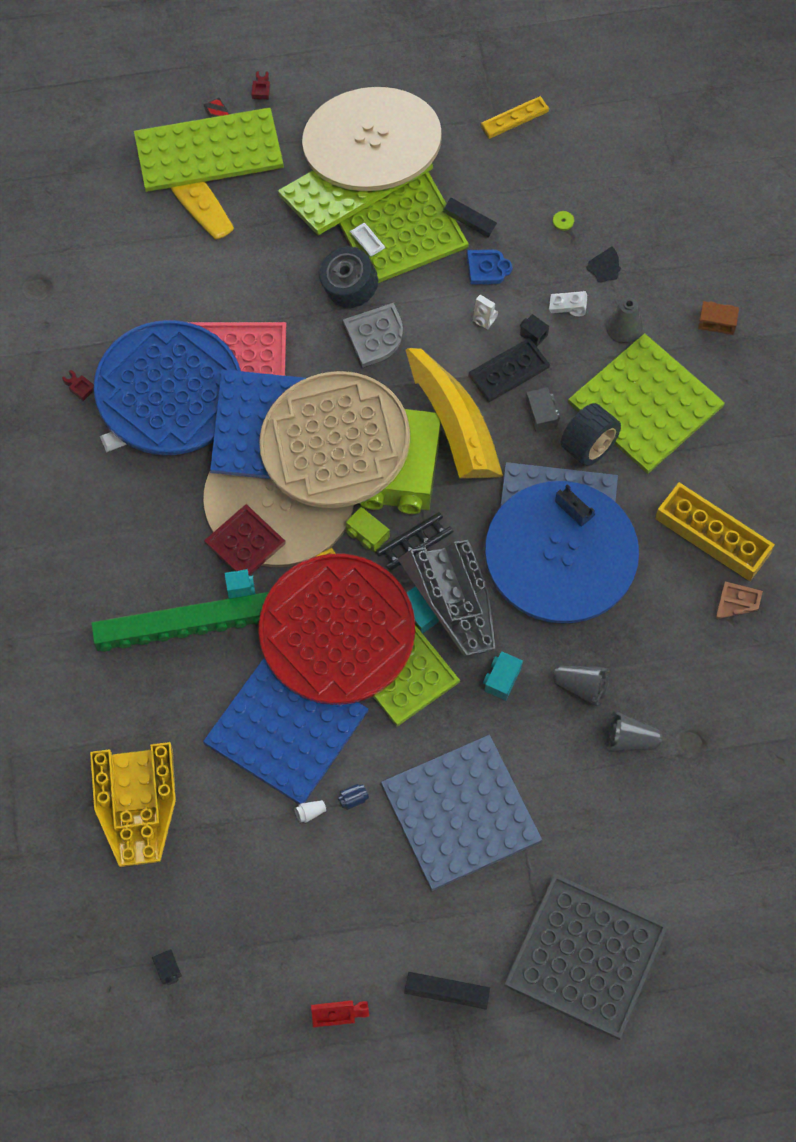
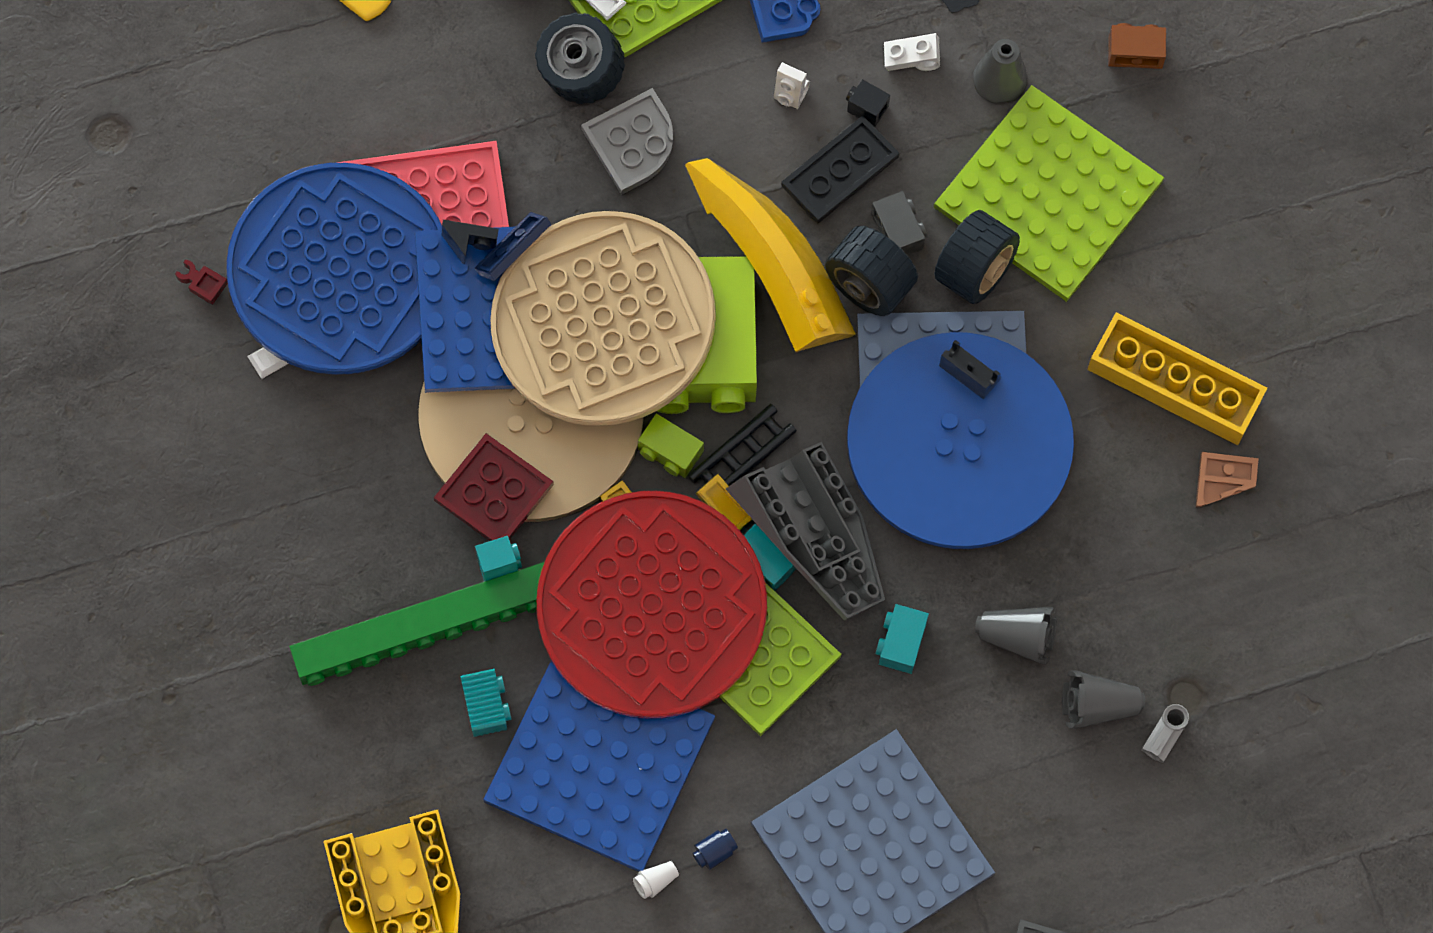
camera: 10 degrees left, 5 degrees up
(215, 678) = (484, 702): none -> teal brick
(251, 375) = (460, 235): none -> black slope
(283, 386) = (512, 246): none -> dark blue tile
(393, 565) = (716, 496): none -> yellow tile
(518, 434) = (871, 270): none -> black wheel
(673, 764) = (1164, 734): none -> light grey piece

